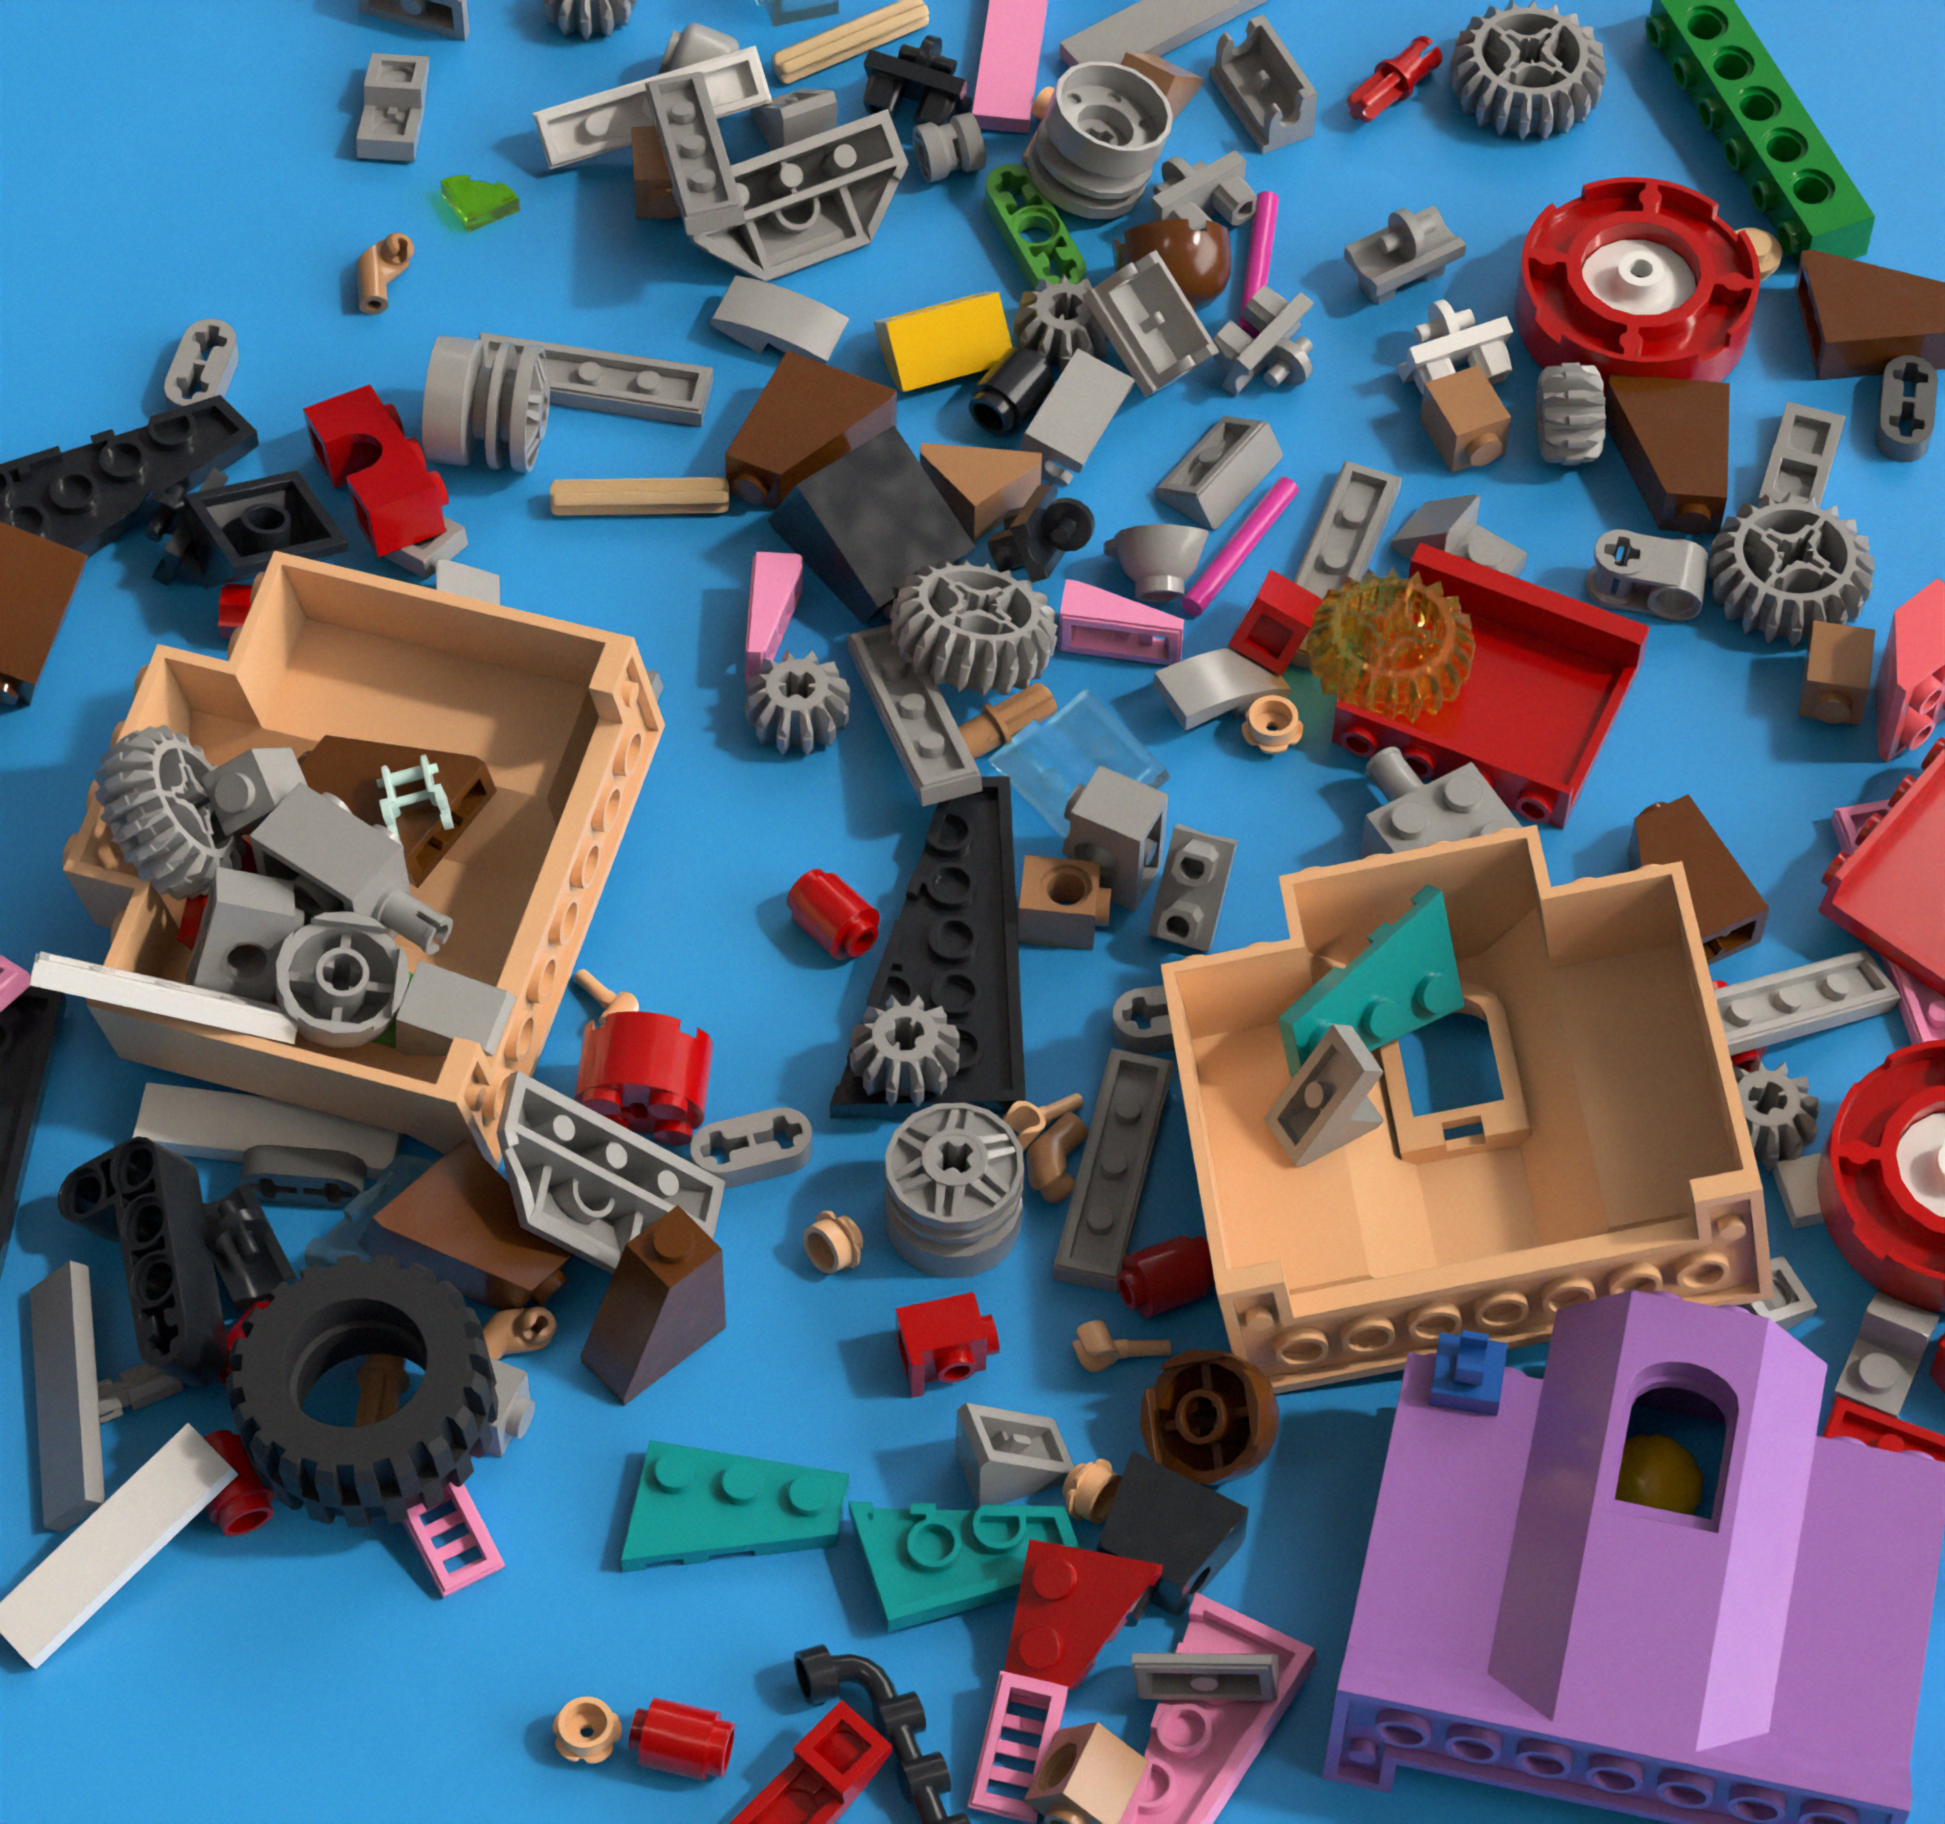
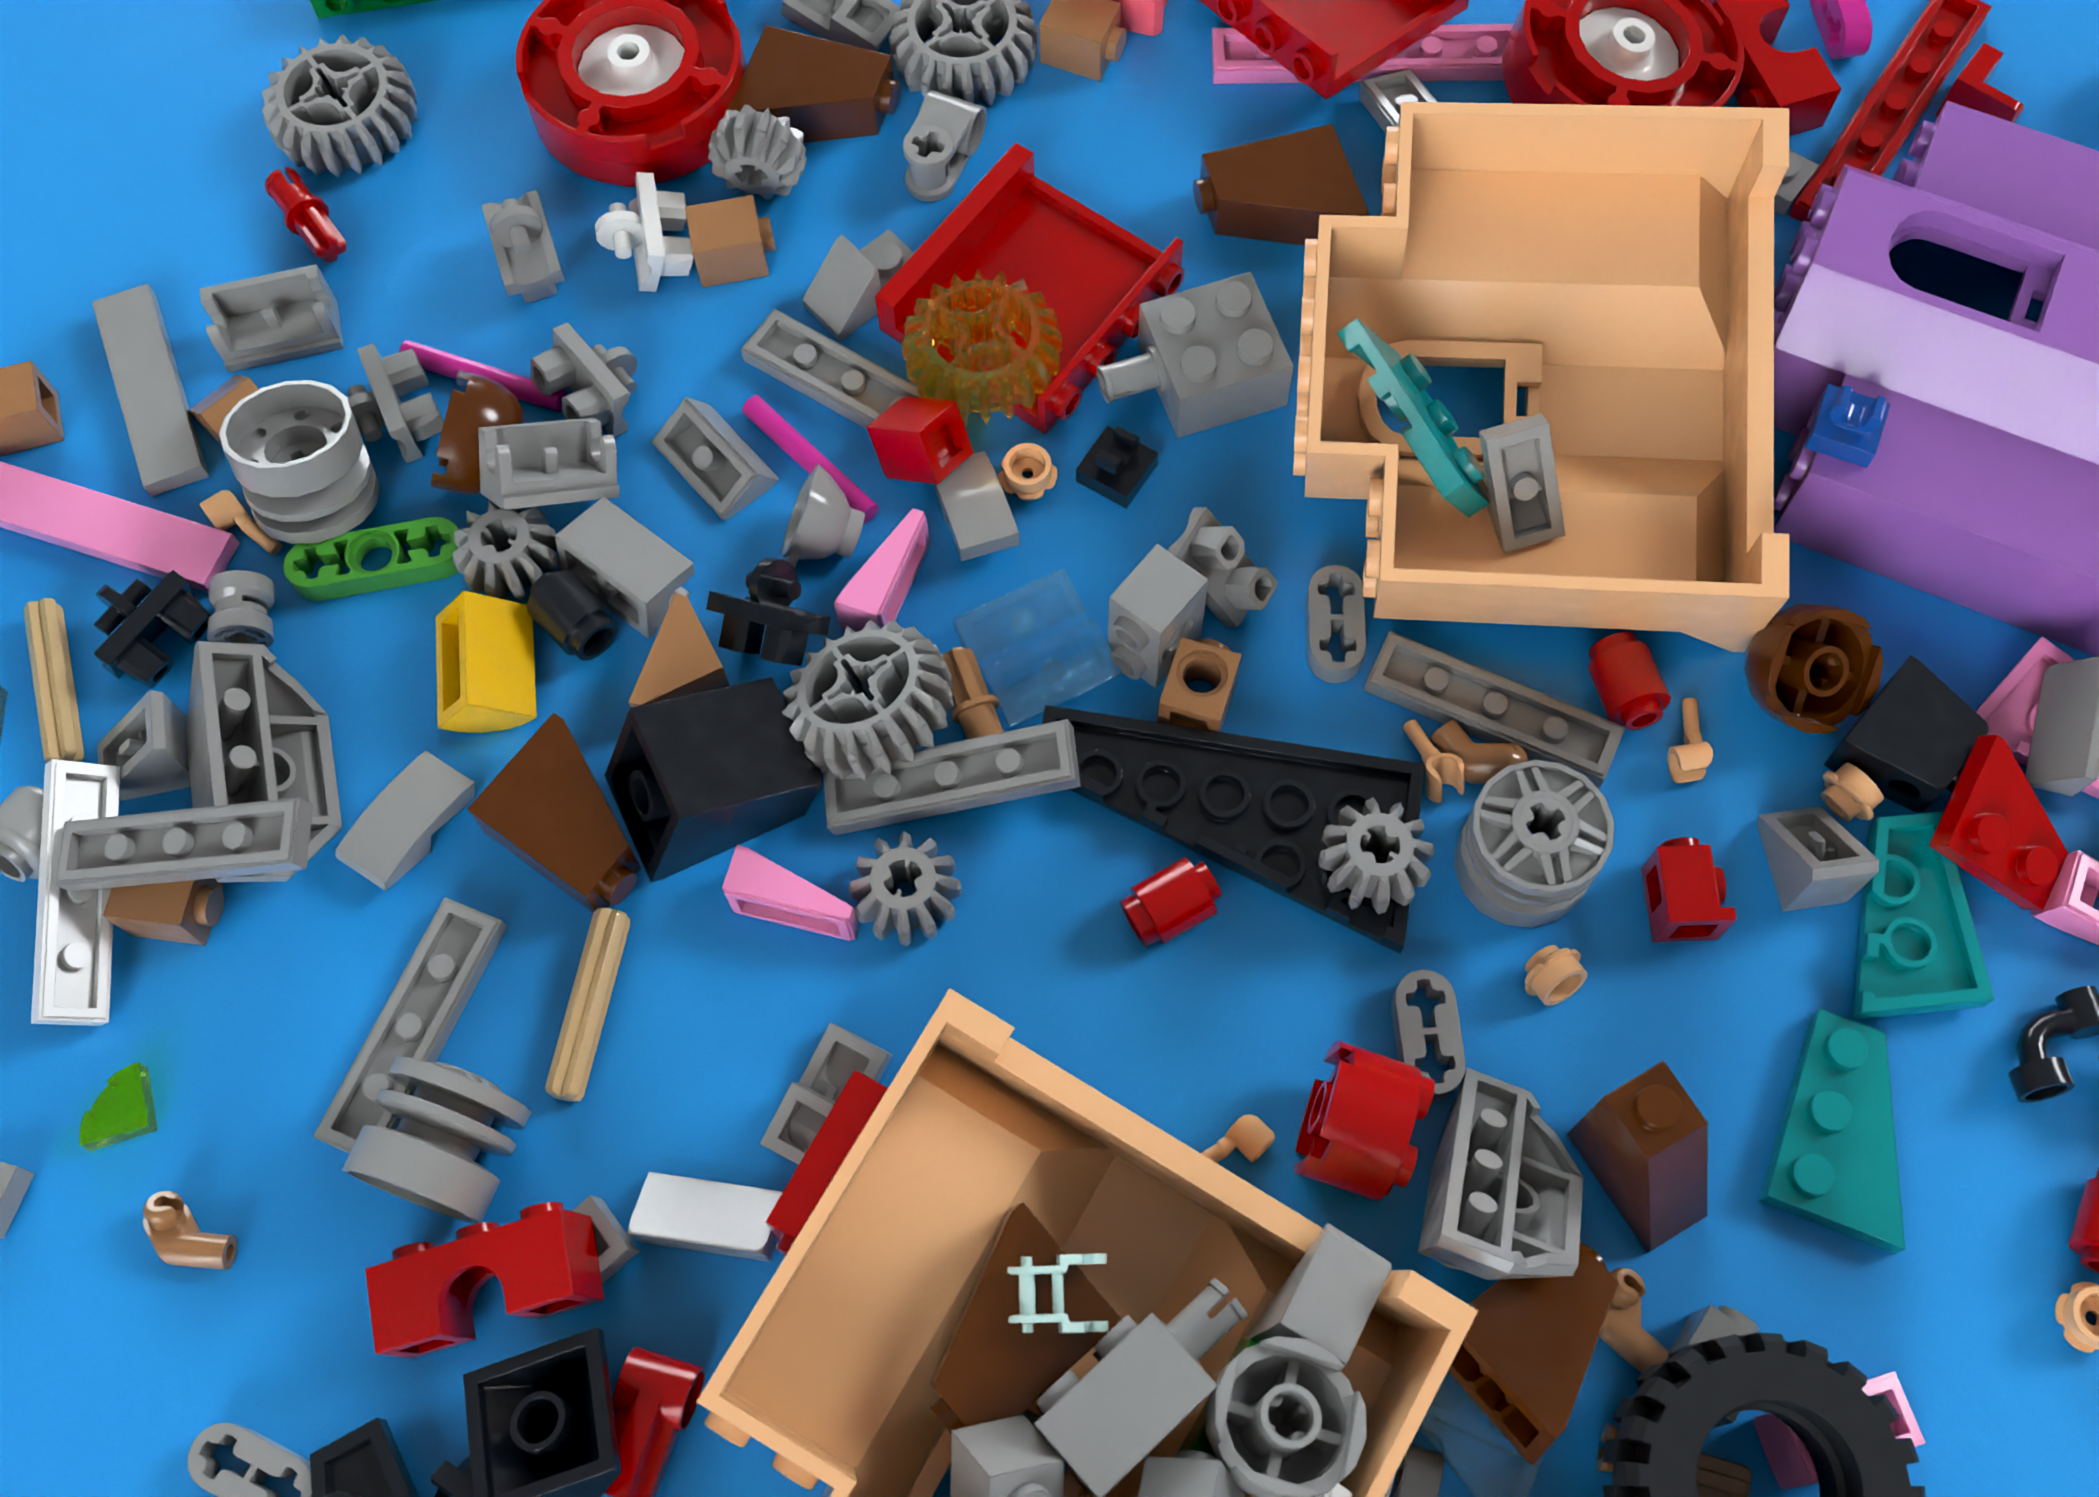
camera: 75 degrees left, 10 degrees up
(1304, 803) = (1117, 466): none -> black tile

